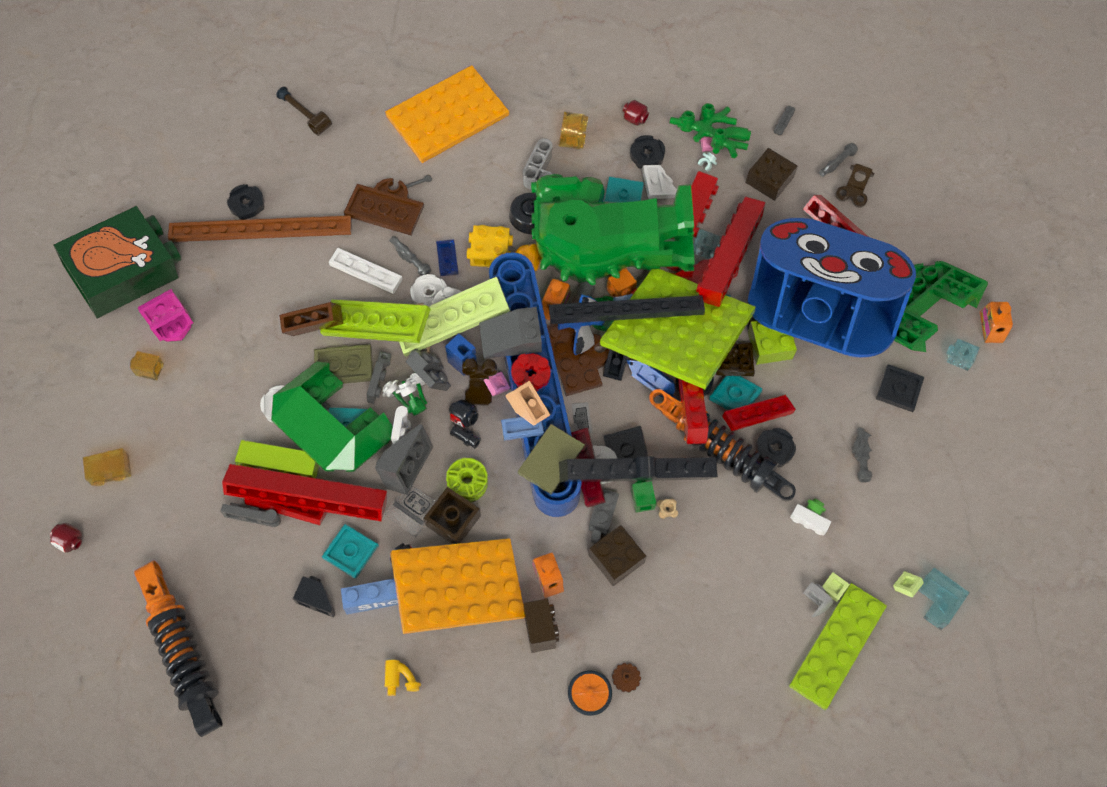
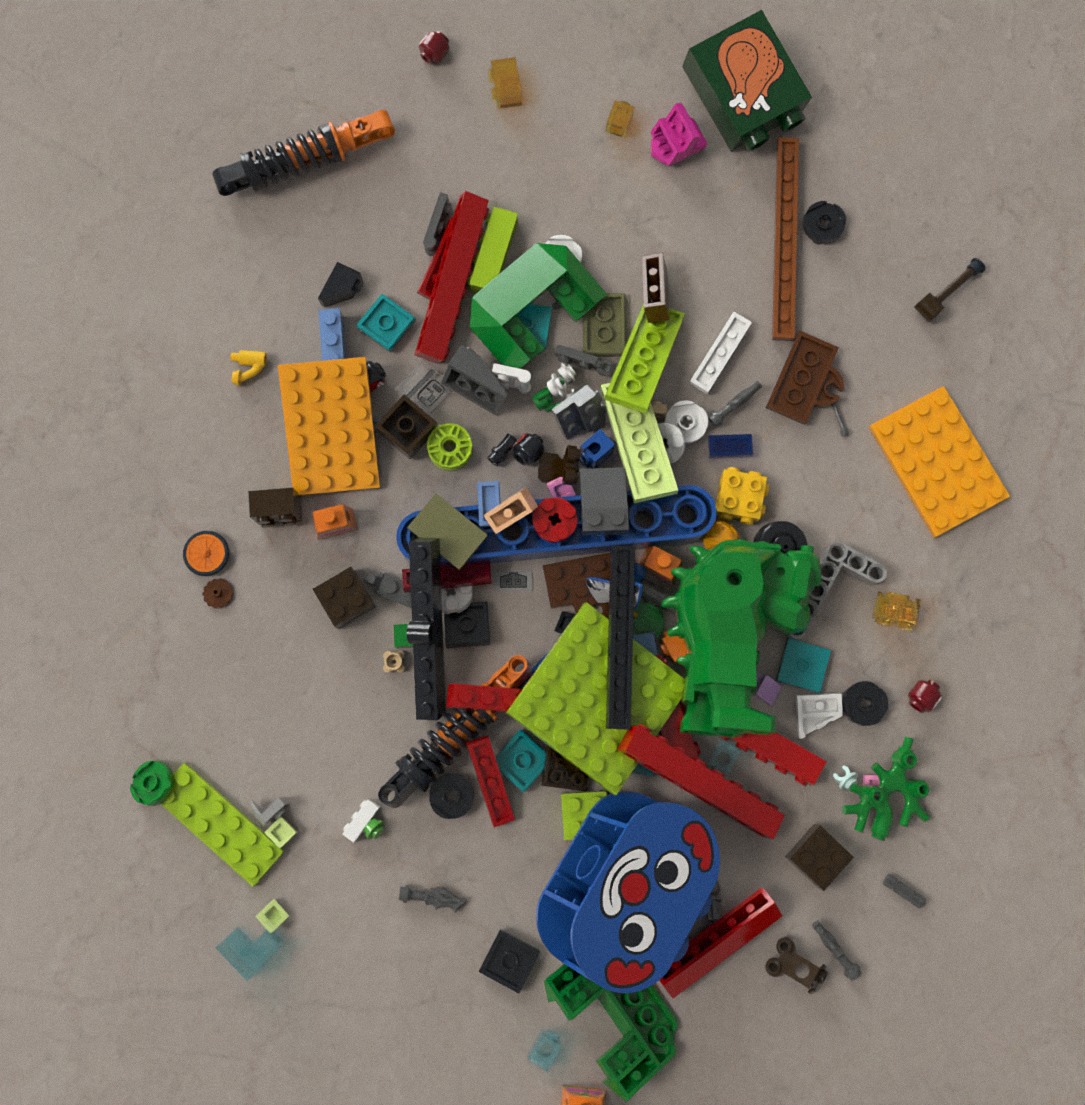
camera: 95 degrees right, 15 degrees up
(814, 710) = (152, 783): none -> green tile

